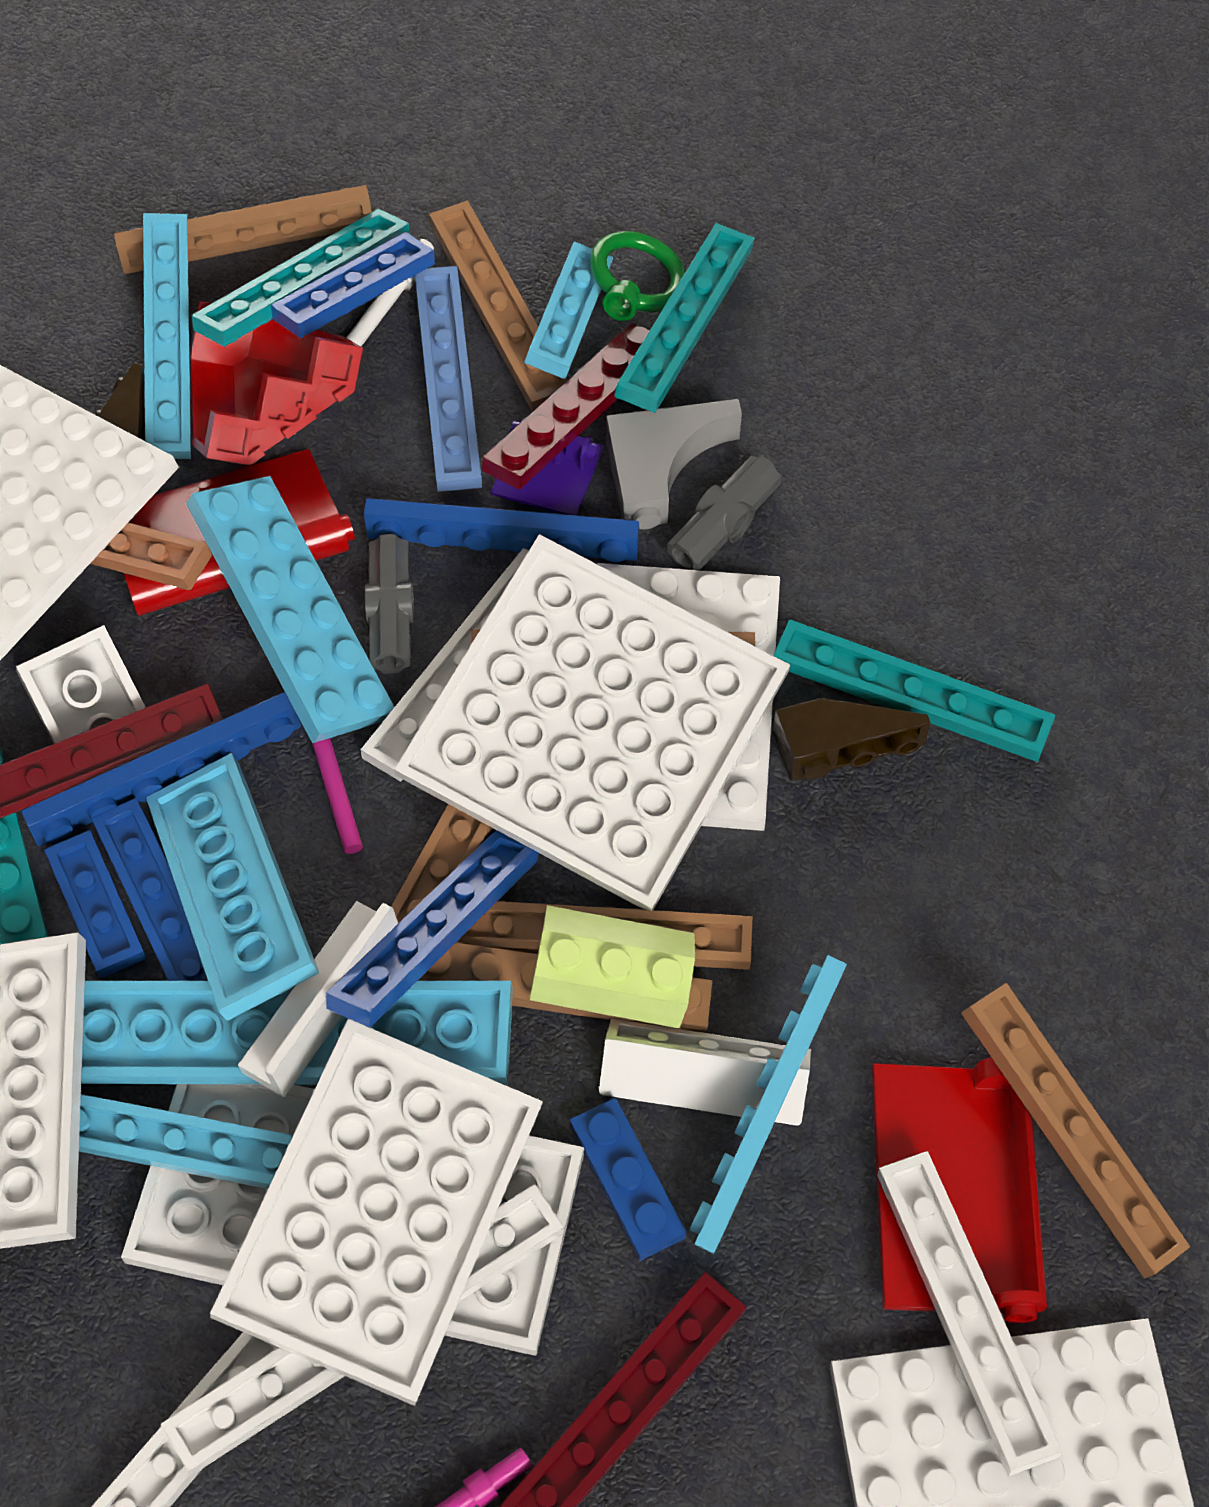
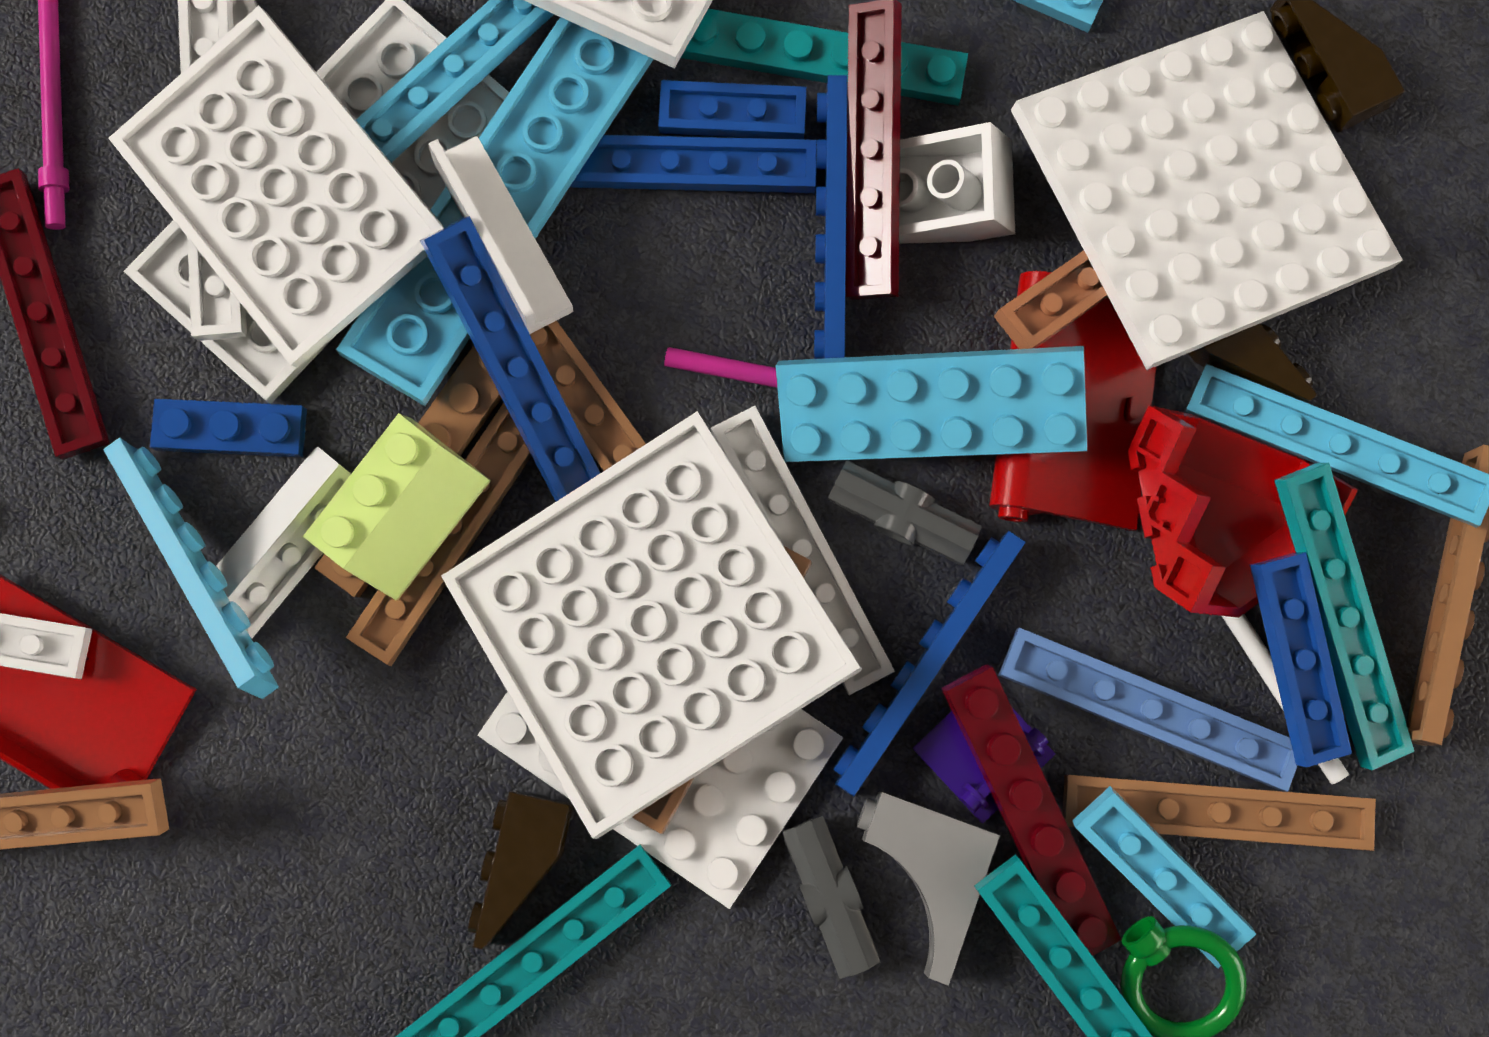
camera: 120 degrees right, 20 degrees up
(231, 887) = (664, 215): medium azure plate -> none

